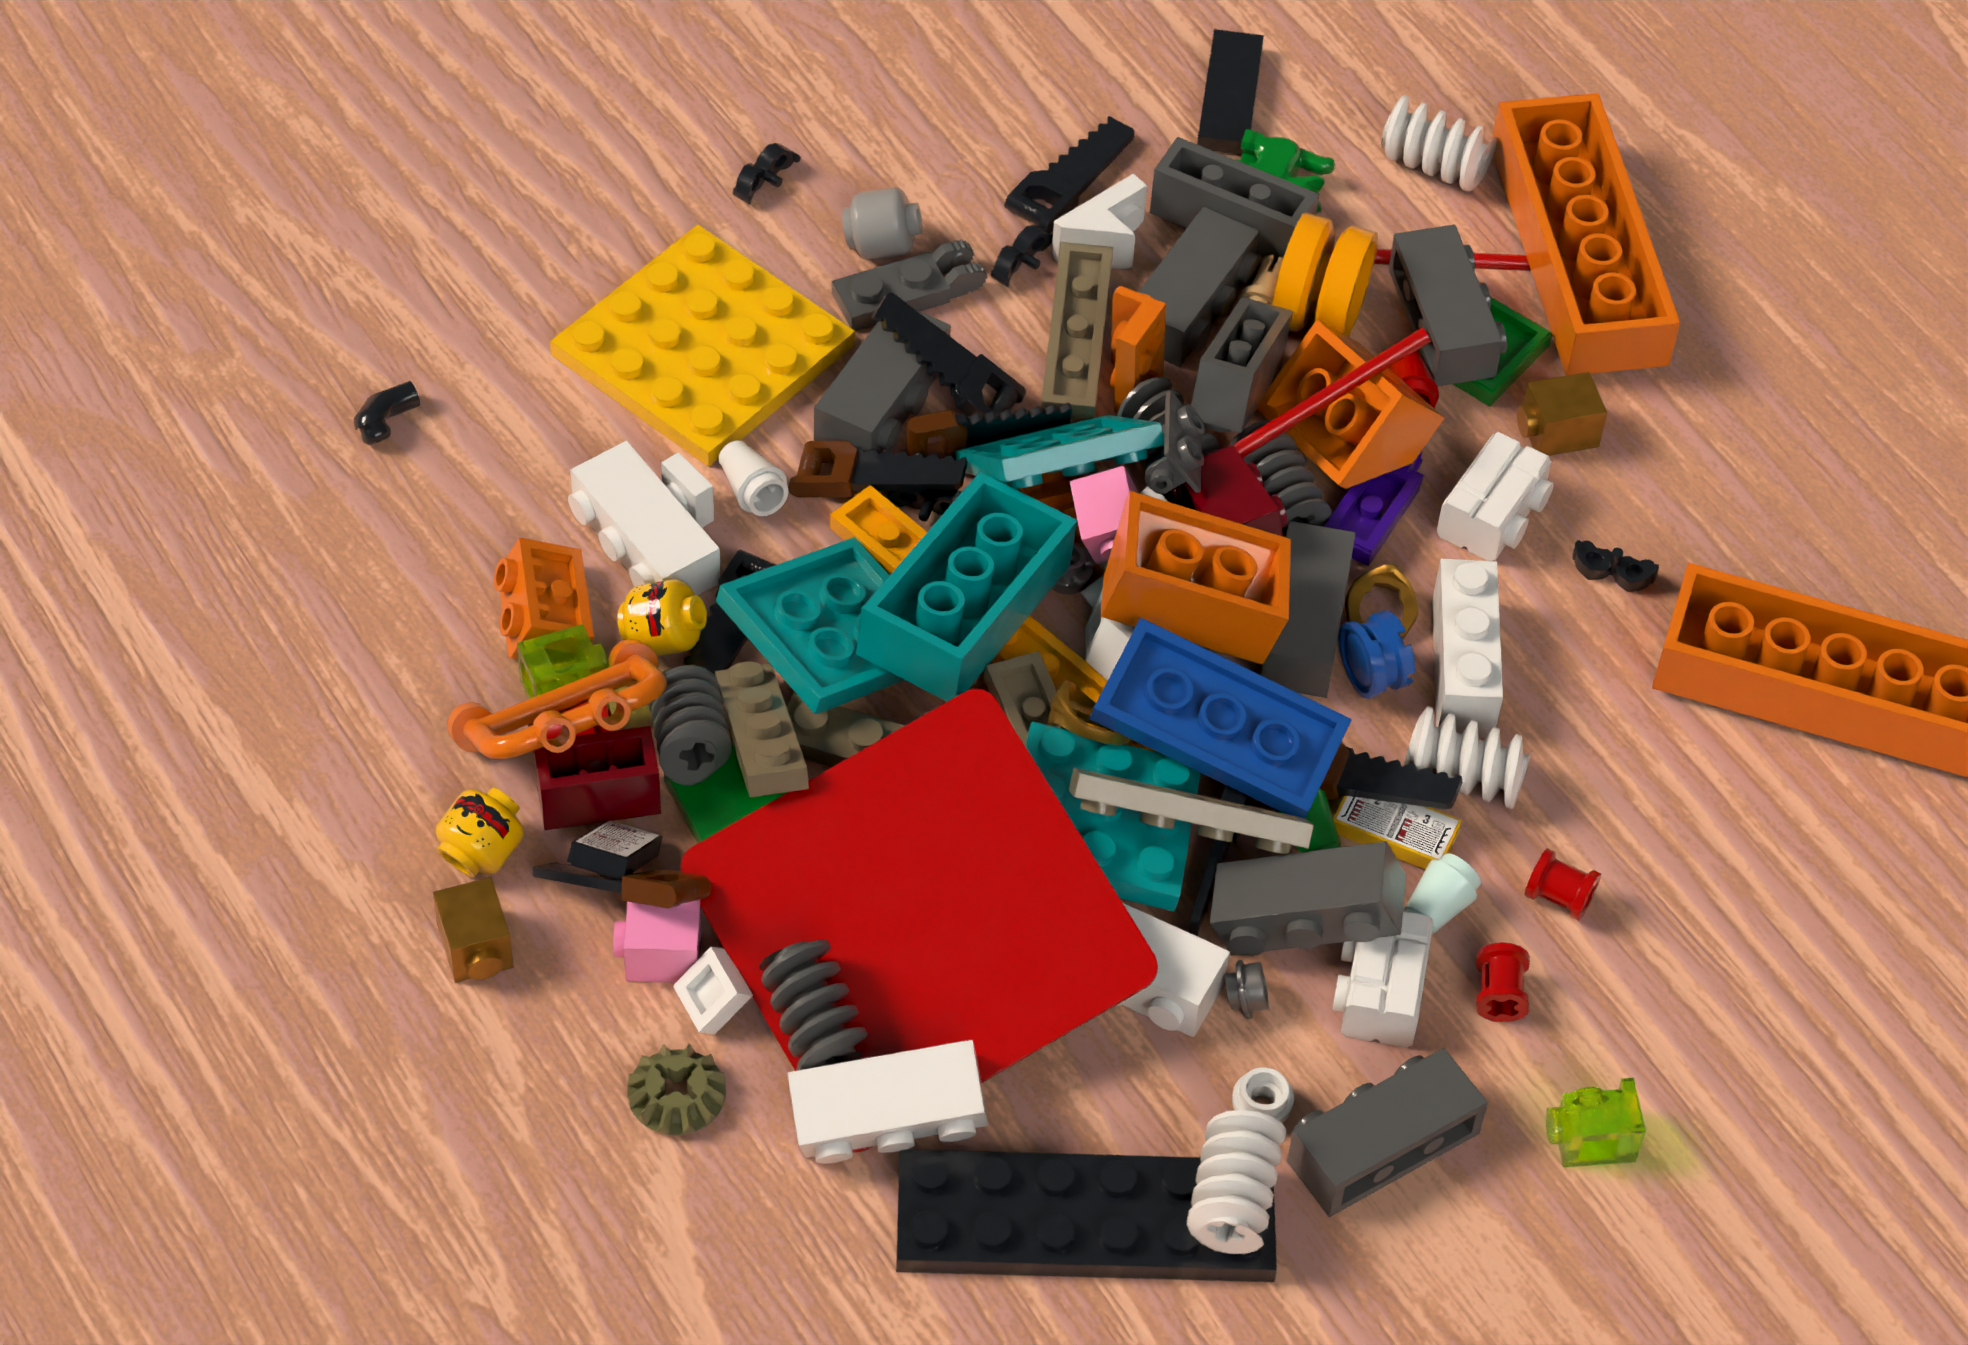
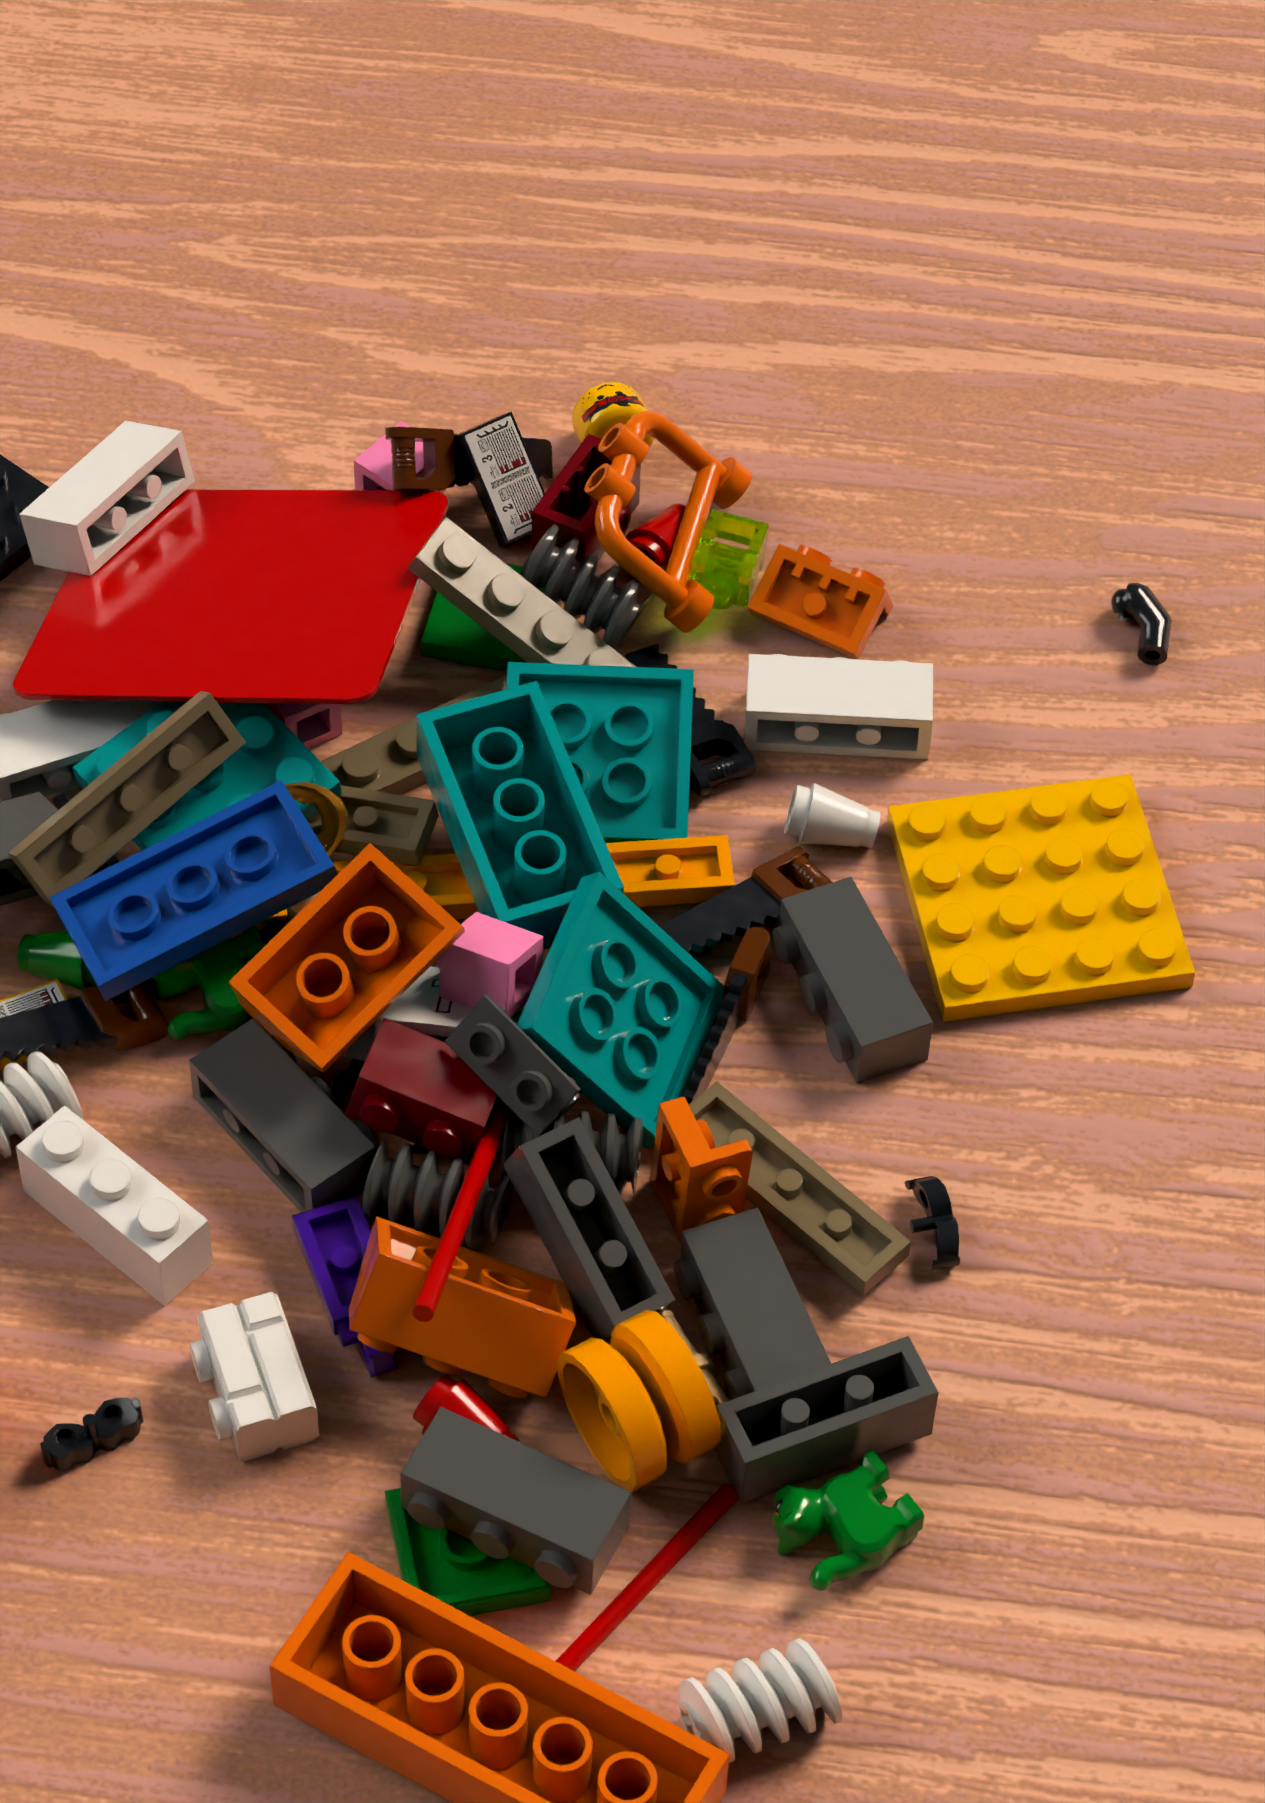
camera: 130 degrees right, 0 degrees up
(473, 930) = (523, 375): pearl gold brick -> none
(663, 616) = (717, 648): yellow head -> none
(676, 1112) = (250, 436): olive gear -> none
(689, 488) = (851, 757): white plate -> none
(712, 990) = (321, 476): white plate -> none
(768, 164) = (1231, 1063): black piece -> none
(810, 1005) = (225, 484): dark grey piece -> none
(881, 223) = (1065, 1110): light grey head -> none
(914, 280) = (977, 1093): dark grey hinge -> none
(948, 359) = (816, 1025): black piece -> none
(1069, 177) = (1016, 1347): black piece -> none
(1106, 221) = (900, 1291): white slope -> none
(1230, 90) = (1020, 1588): black tile -> none
(1376, 654) = (176, 1122): blue wheel -> none
(1388, 577) = (250, 1221): pearl gold piece -> none
(1562, 414) = (295, 1522): pearl gold brick -> none

